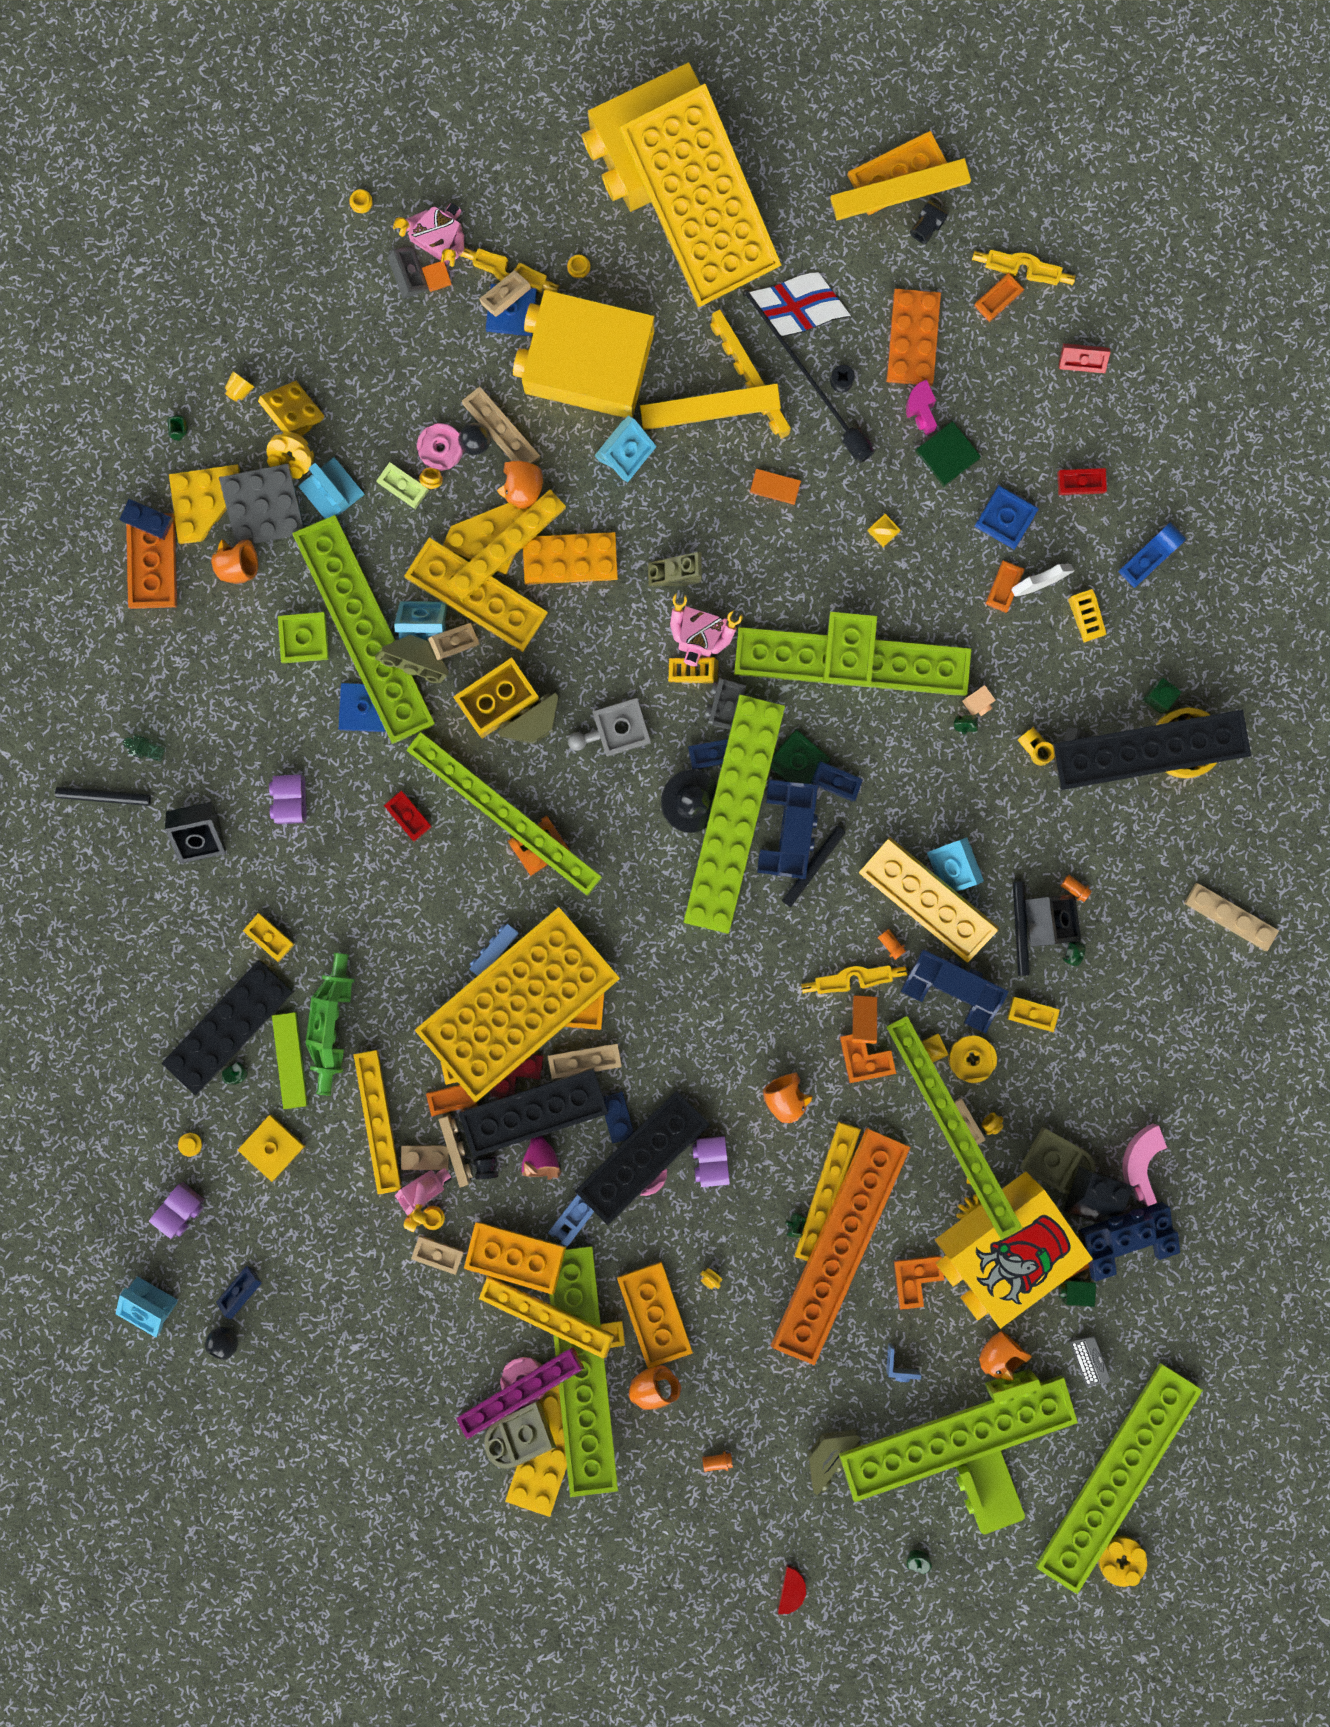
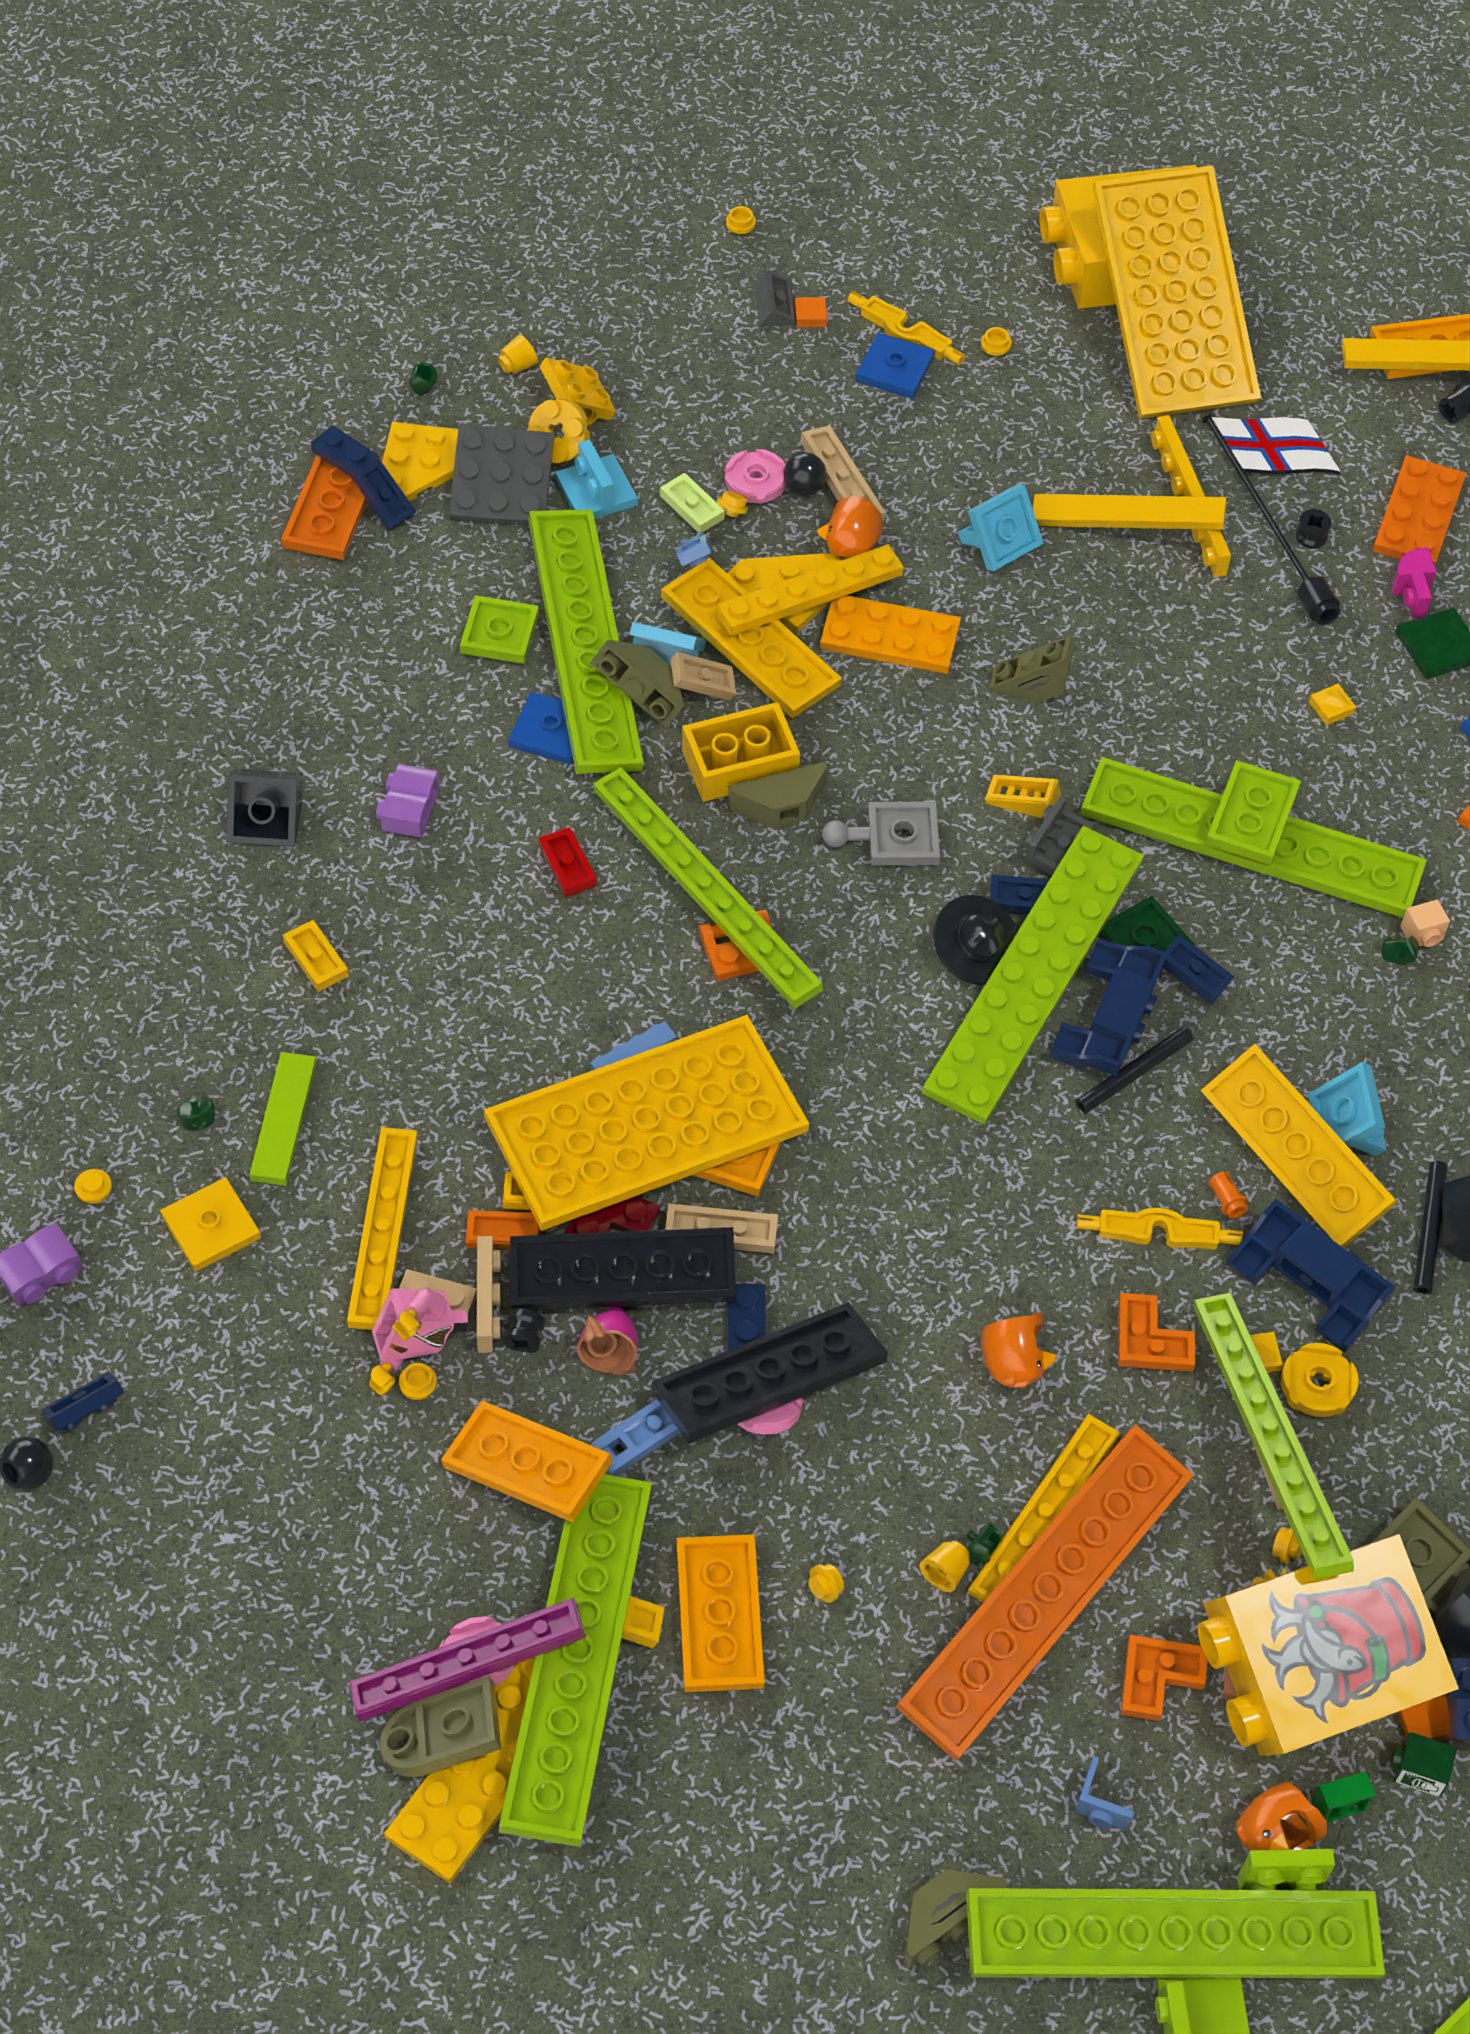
camera: 10 degrees right, 30 degrees down
(103, 796) = (155, 738): black piece -> none
(140, 747) = (231, 696): clear green piece -> none
(186, 547) = (384, 494): none -> dark blue plate
(227, 1027) = (209, 1054): black plate -> none
(236, 563) = (436, 526): orange piece -> none
(321, 1023) = (337, 1109): bright green plate -> none
(417, 532) = (694, 550): none -> medium blue plate
(435, 232) = (823, 266): bright pink torso -> none
(437, 1254) = (407, 1433): tan plate -> none
(505, 293) = (894, 338): tan plate -> none
(547, 1317) = (550, 1555): yellow tile -> none
(585, 353) = (979, 417): yellow brick -> none
(645, 1389) = (677, 1712): orange piece -> none
(700, 632) = (1047, 747): bright pink torso -> none
(712, 1161) = (875, 1413): medium lavender brick -> none
(718, 1462) = (756, 1871): orange pin -> none
(775, 486) = (1193, 622): orange tile -> none
(778, 1246) = (946, 1565): none -> yellow hat
(864, 1019) = (1163, 1279): orange tile -> none
(992, 1124) = (1333, 1479): yellow plate -> none
(1033, 1014) = (1427, 1343): yellow plate -> none
(1036, 1327) = (1344, 1797): none -> green piece
(1089, 1360) = (1424, 1884): slope -> none

